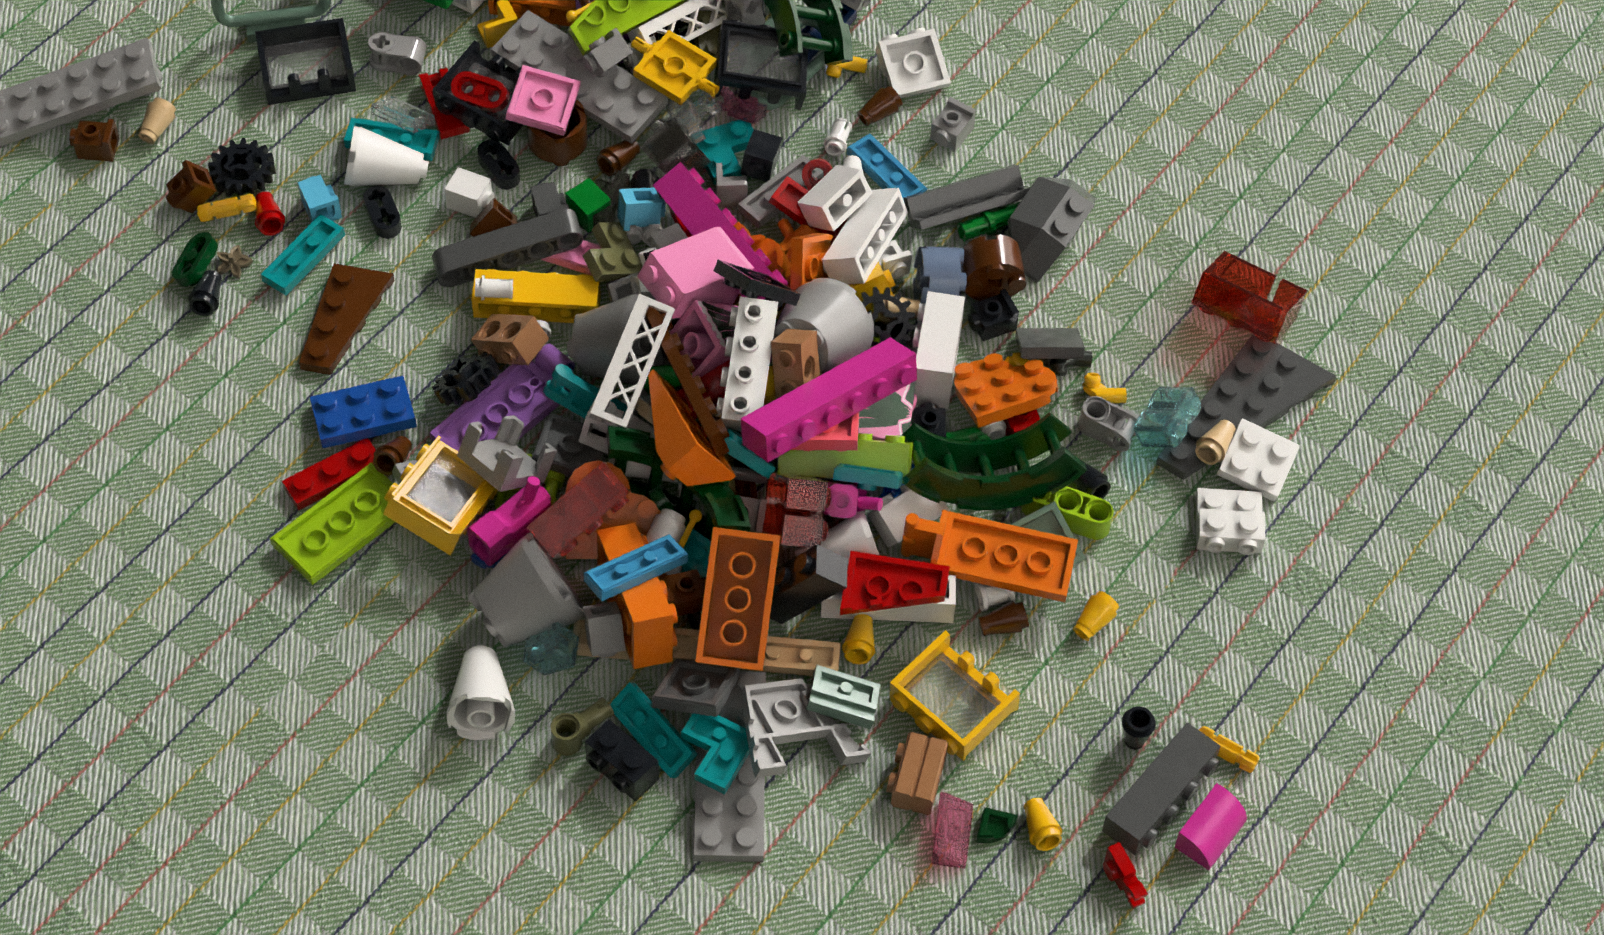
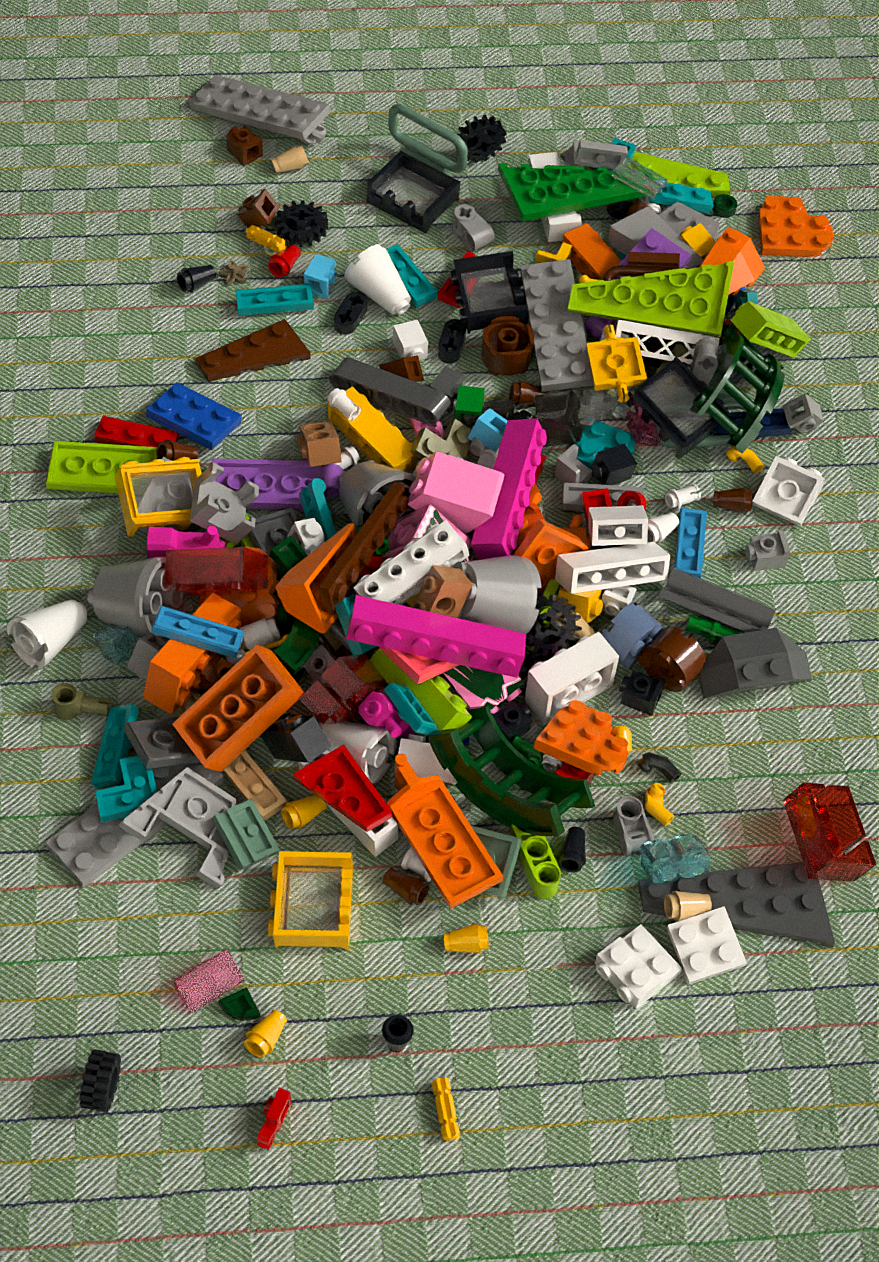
camera: 45 degrees right, 0 degrees up
(194, 259) = (217, 251): dark green plate -> none
(402, 114) = (424, 265): clear tile -> none
(466, 378) = (268, 445): black gear -> none
(482, 92) = (480, 284): red plate -> none
(543, 100) = (507, 317): bright pink plate -> none
(606, 53) = (576, 318): light grey brick -> none
(620, 357) = (340, 502): white fence -> none
(621, 760) = (74, 745): black brick -> none
(756, 283) = (474, 524): black plate -> none
(918, 773) = (232, 924): medium nougat brick -> none
(1050, 343) = (654, 740): dark grey tile -> none
(1161, 789) = (368, 1089): dark grey brick -> none
(1211, 827) = (369, 1147): dark pink brick -> none

